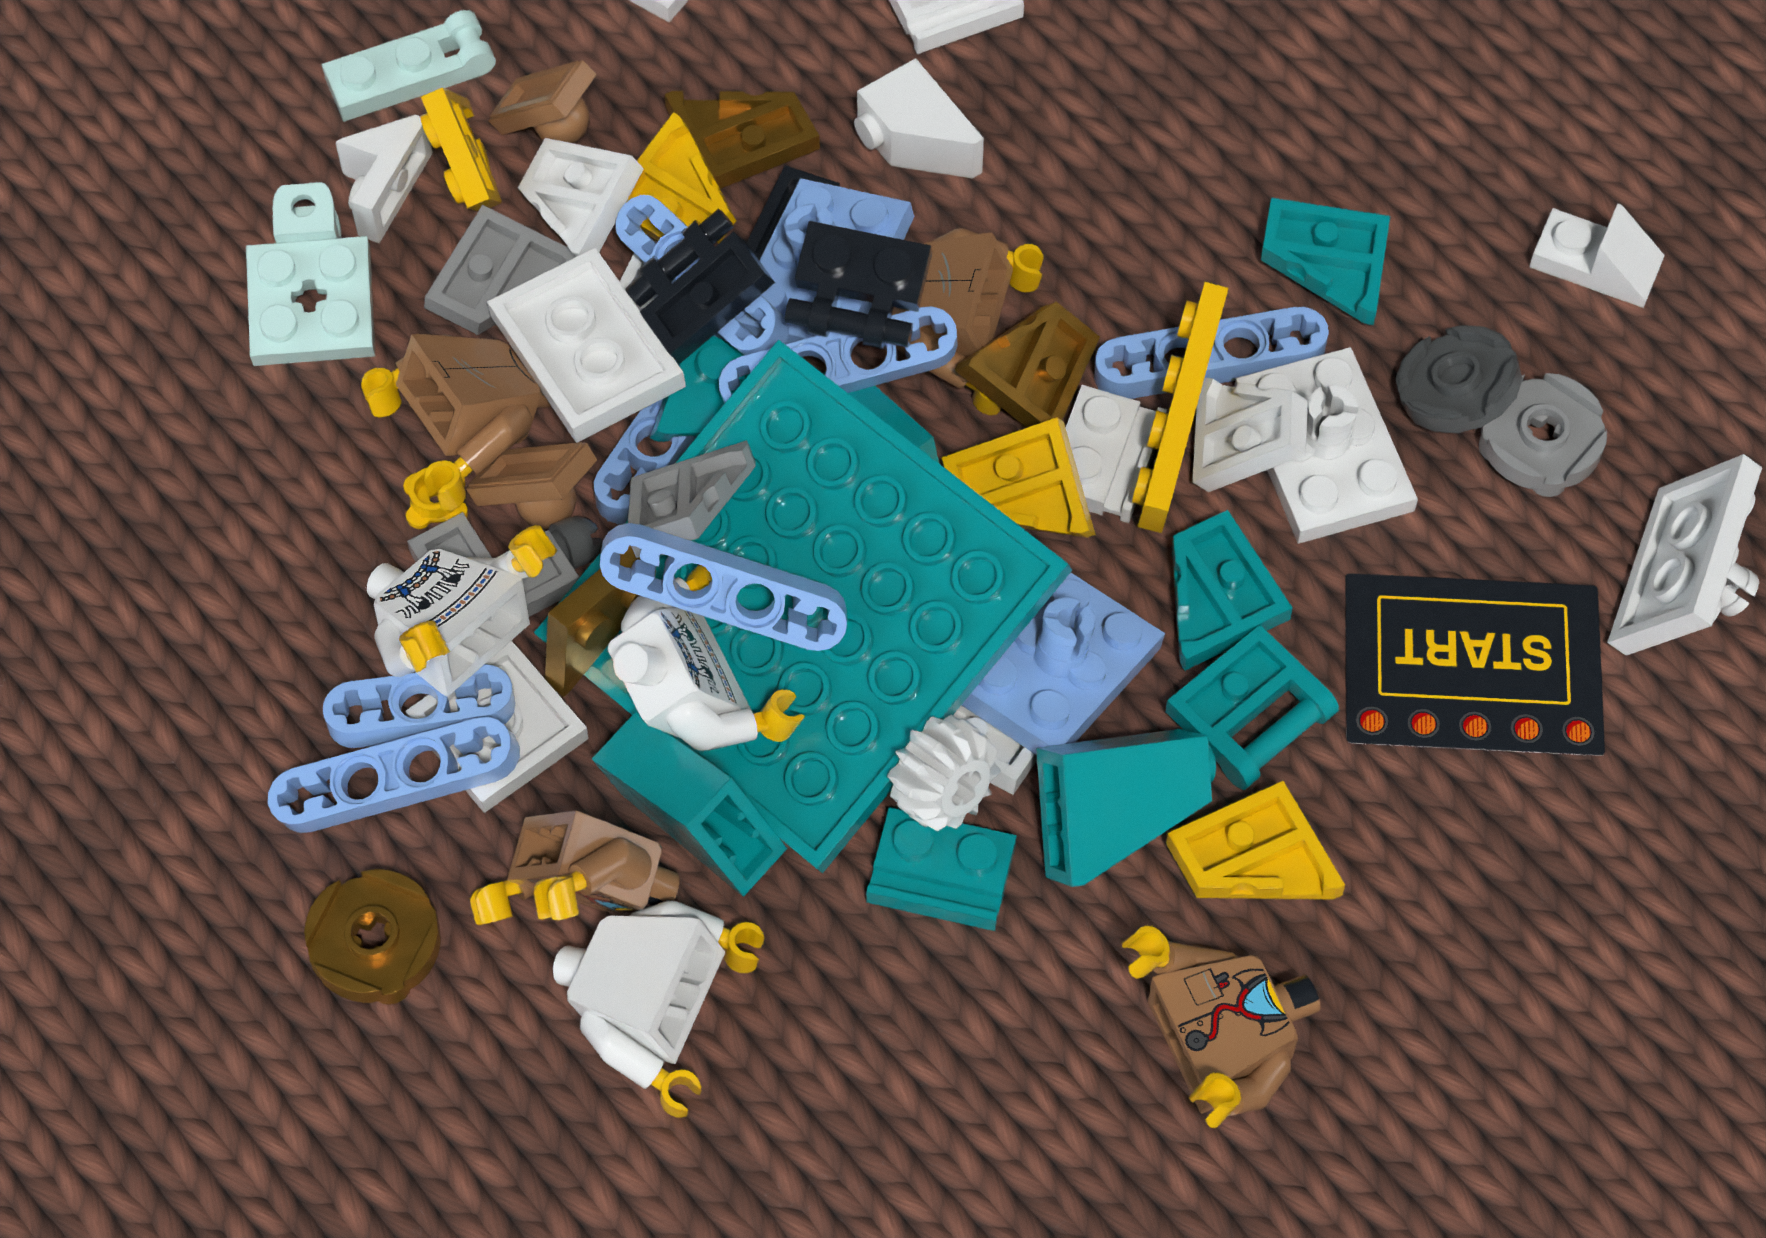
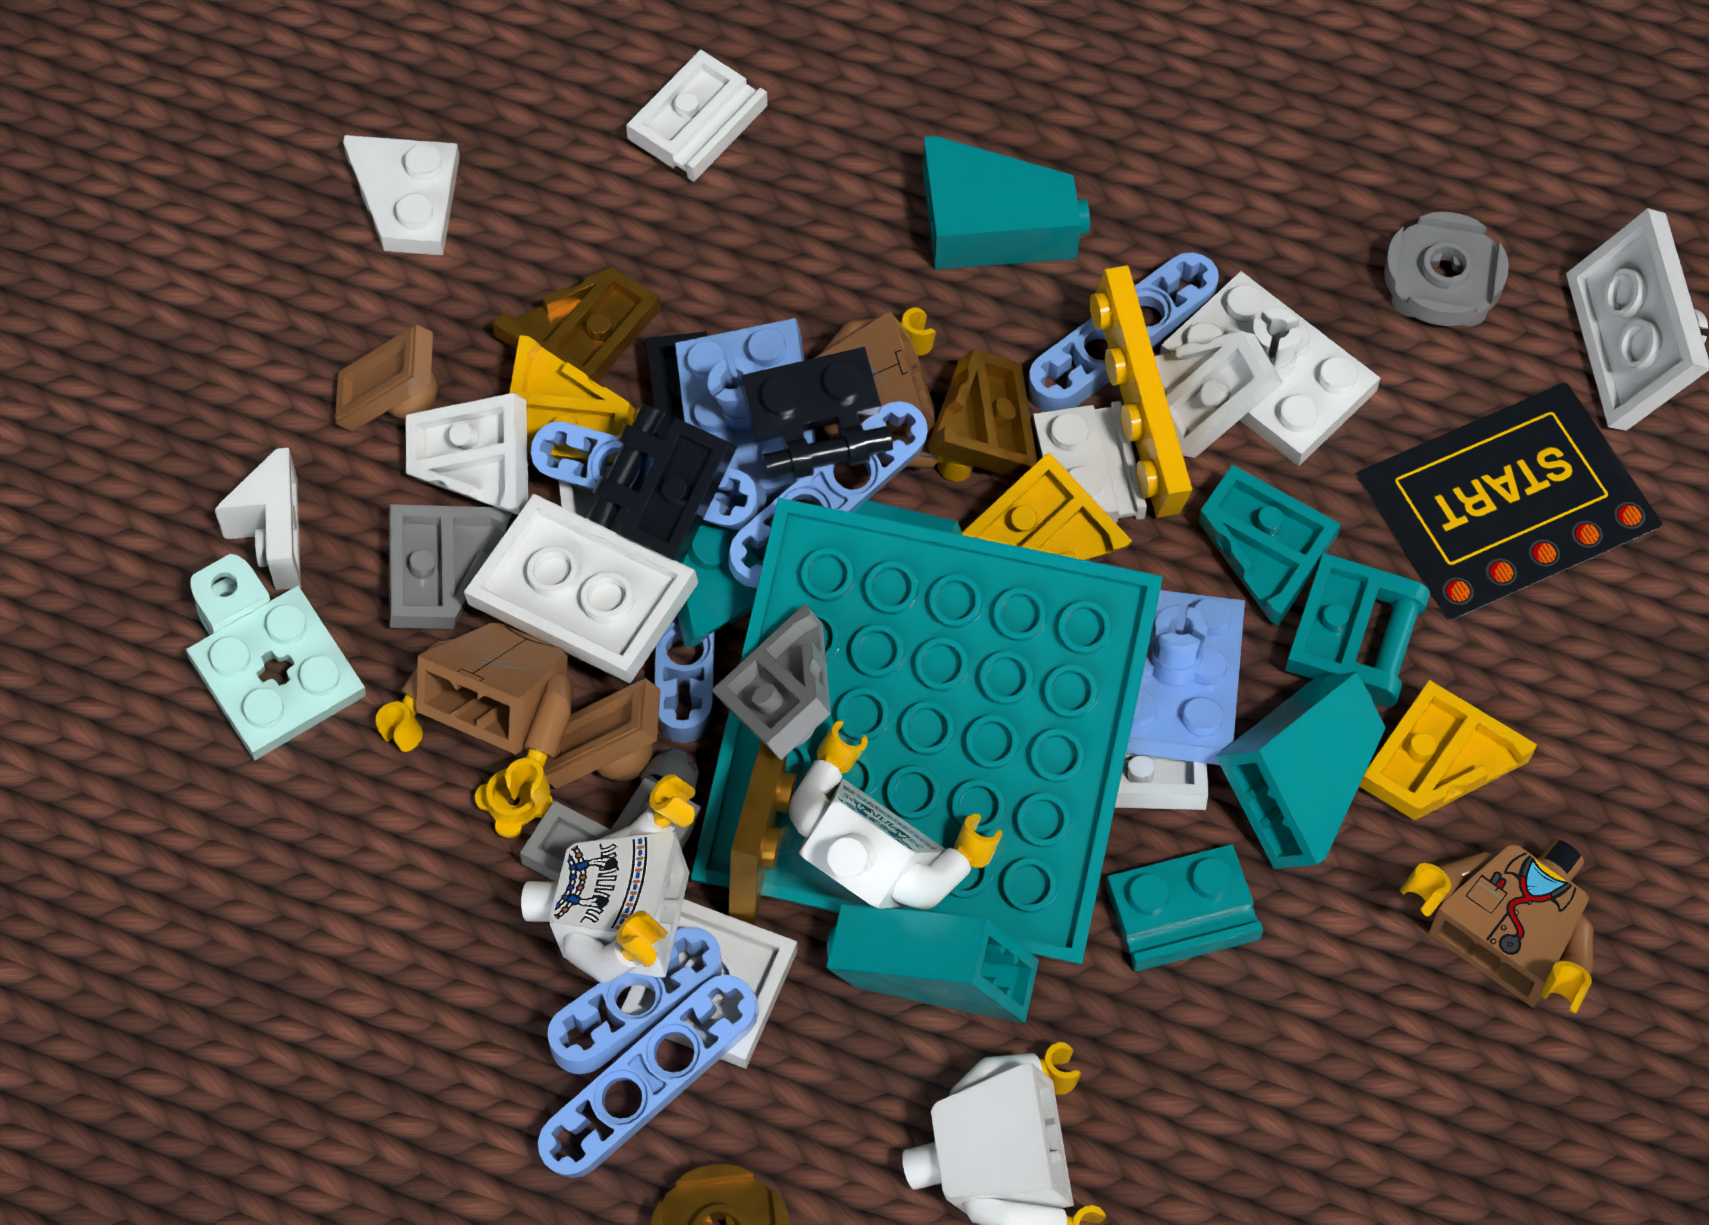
camera: 30 degrees left, 0 degrees up
(409, 66) = (225, 408): light aqua plate -> none
(469, 170) = (318, 447): yellow wing -> none
(575, 861) = (877, 1066): medium nougat torso -> none
(728, 576) = (874, 755): light blue beam -> none
(917, 124) = (742, 245): white slope -> none
(943, 772) = (1151, 819): white gear -> none
(1163, 193) = (998, 208): none -> teal slope
(1329, 252) = (1170, 196): teal wing -> none
(1459, 379) = (1351, 256): dark grey tile -> none
(1606, 259) = (1393, 96): white slope -> none

